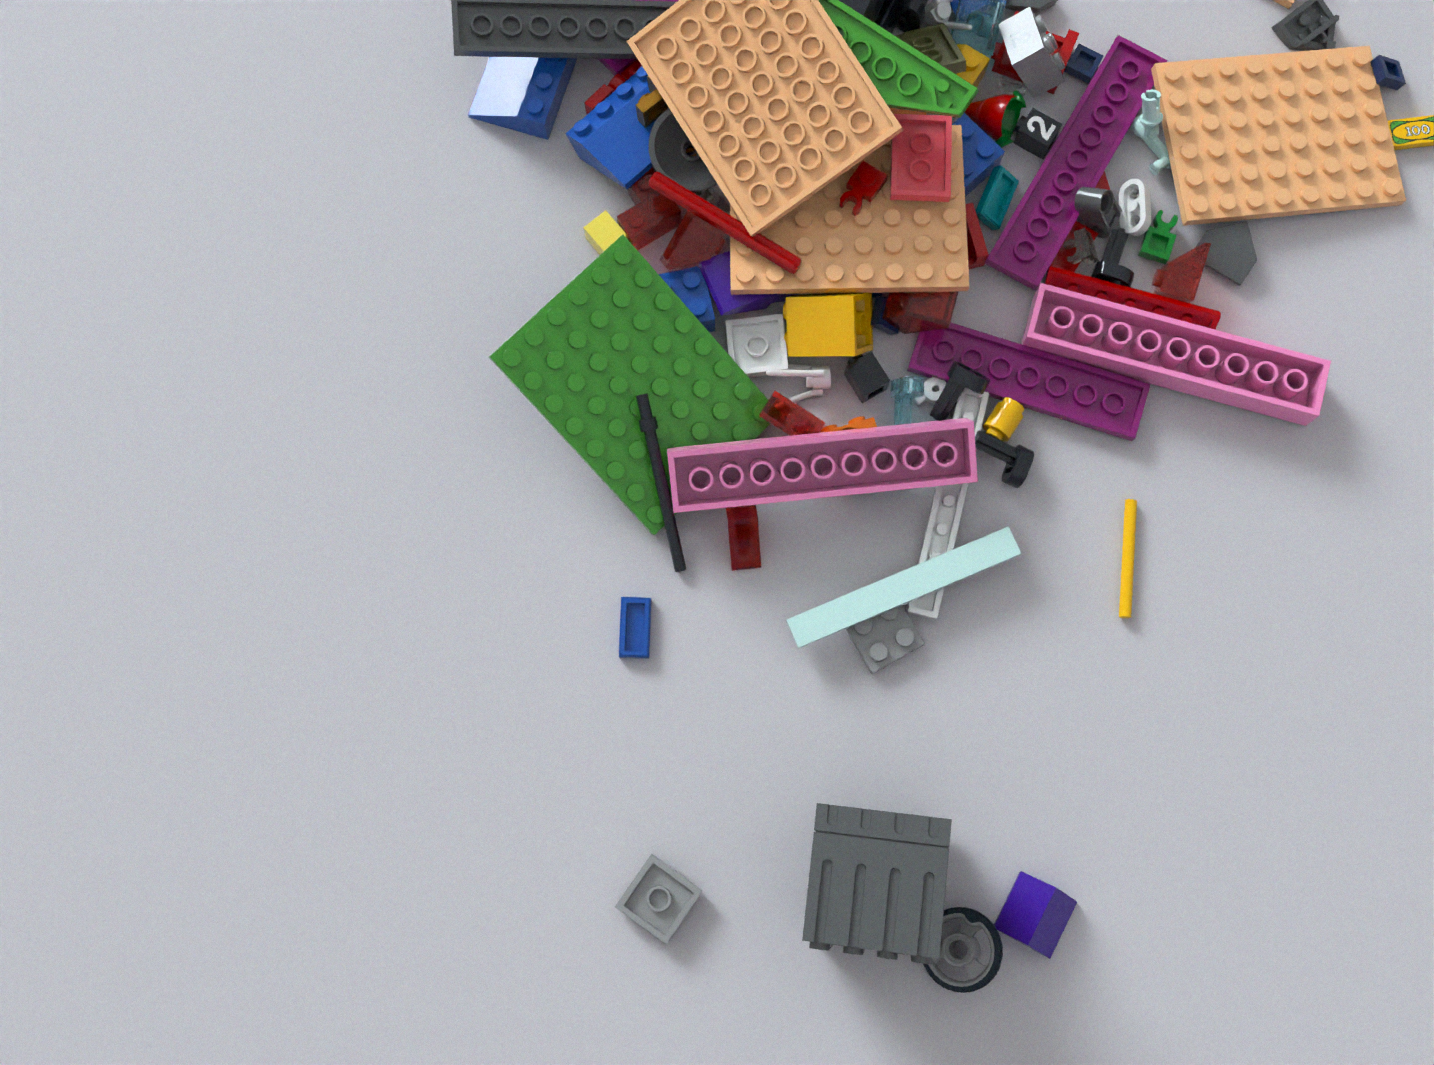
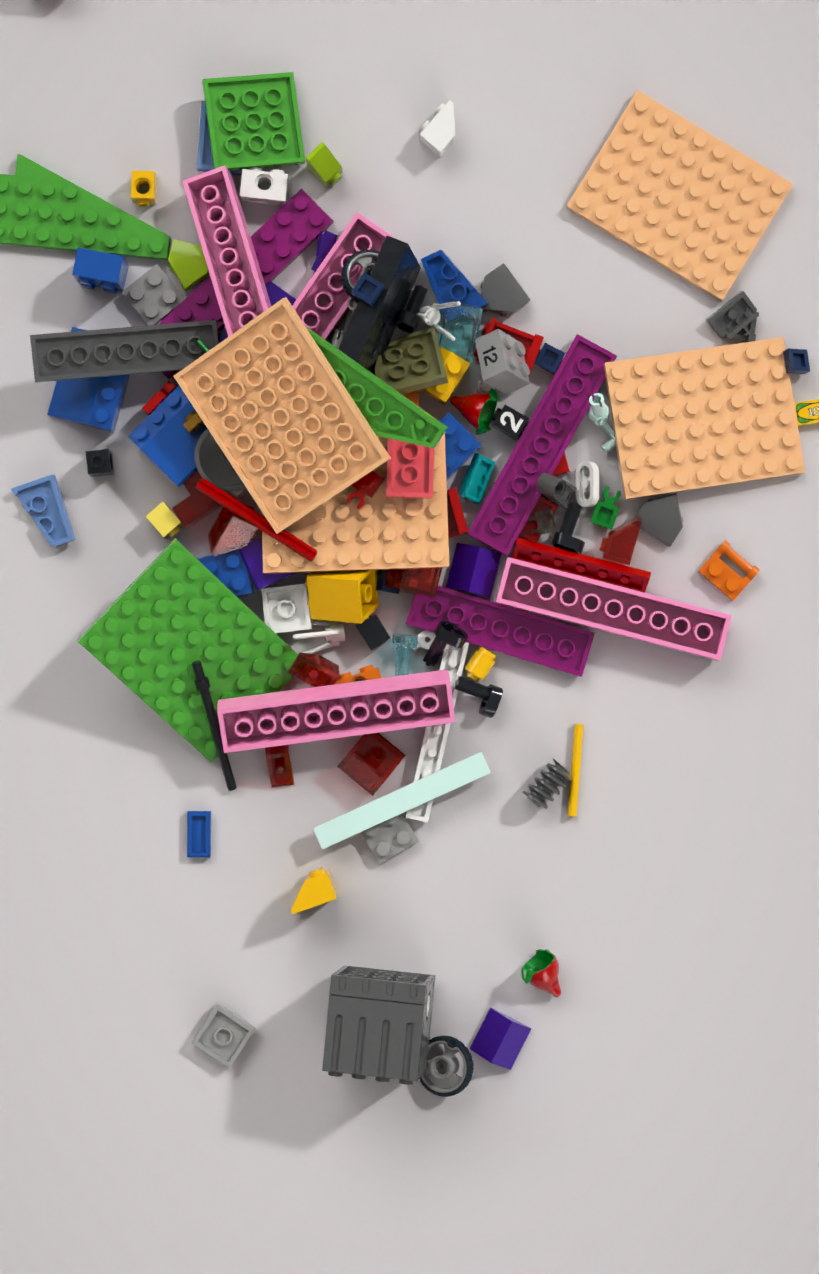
camera: 10 degrees left, 10 degrees up
(461, 221) = (46, 506): none -> medium blue wing
(529, 167) = (99, 463): none -> black brick
(789, 701) = (315, 891): none -> yellow slope
(862, 538) = (371, 761): none -> clear red slope
(993, 305) = (473, 570): none -> dark purple slope
(1093, 572) = (548, 784): none -> dark grey piece
(1095, 822) = (542, 972): none -> hat
(1309, 323) = (723, 576): none -> orange plate

